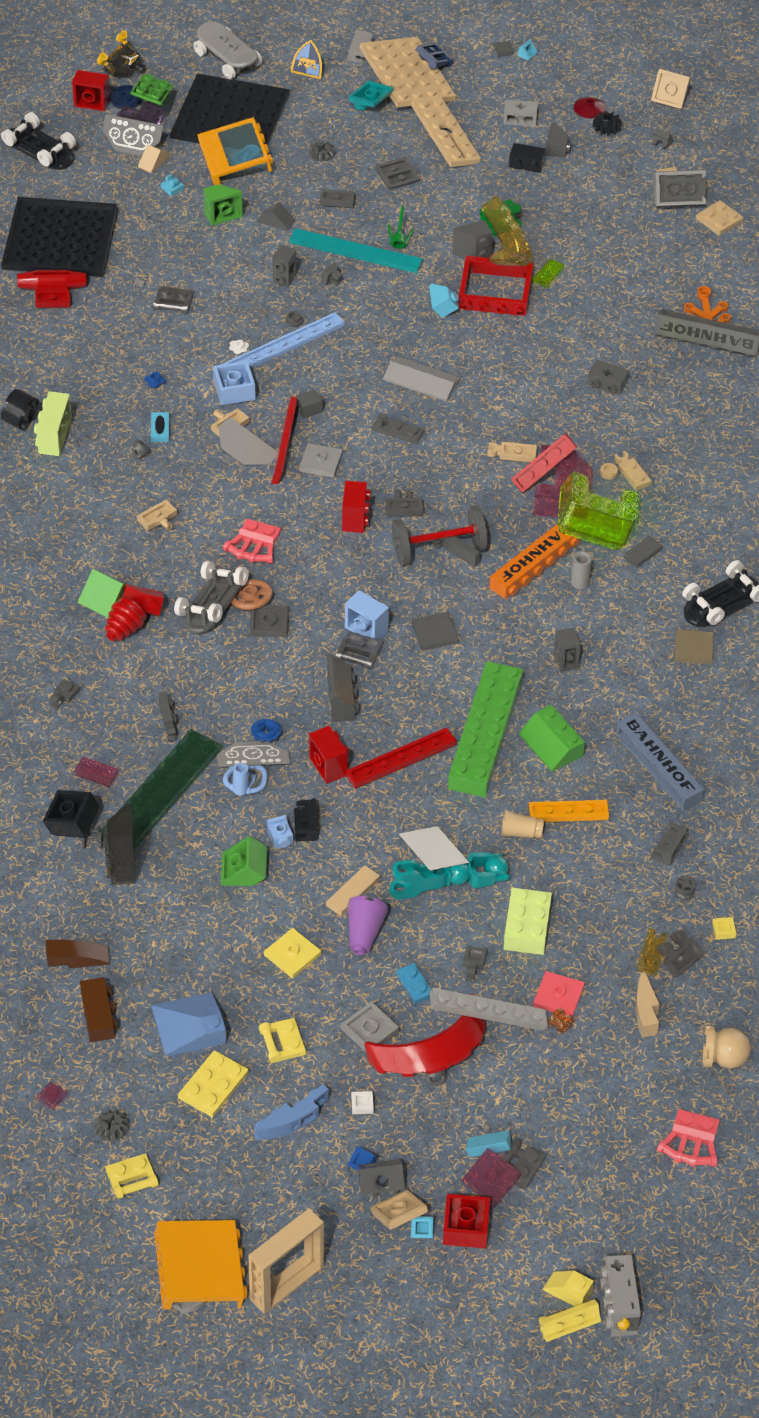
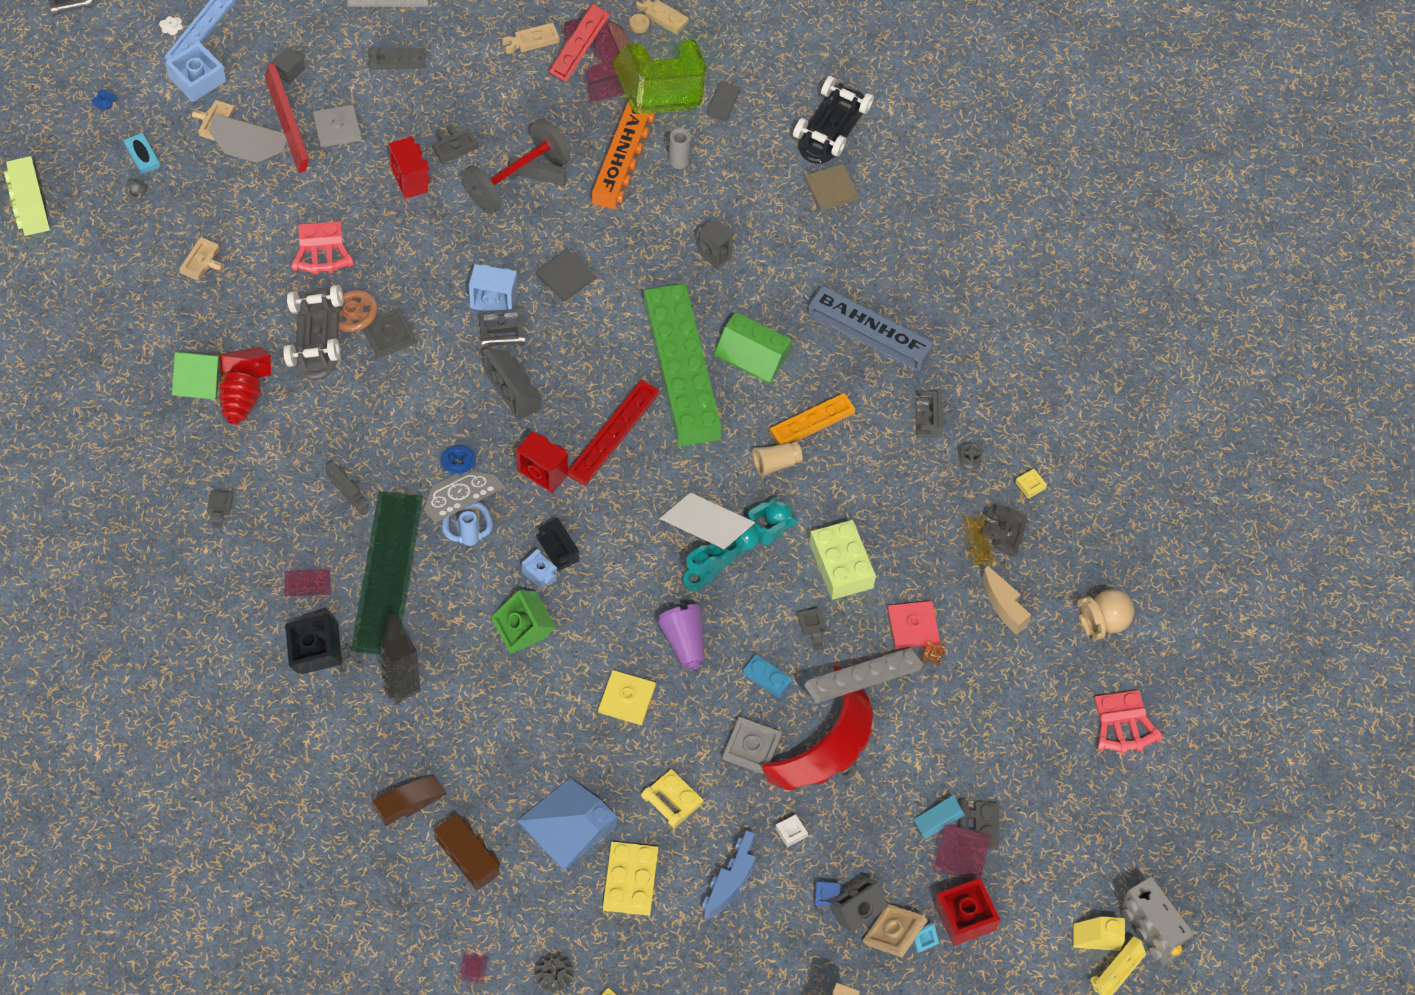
camera: 30 degrees left, 10 degrees up
(356, 886) = (648, 601): tan tile -> none

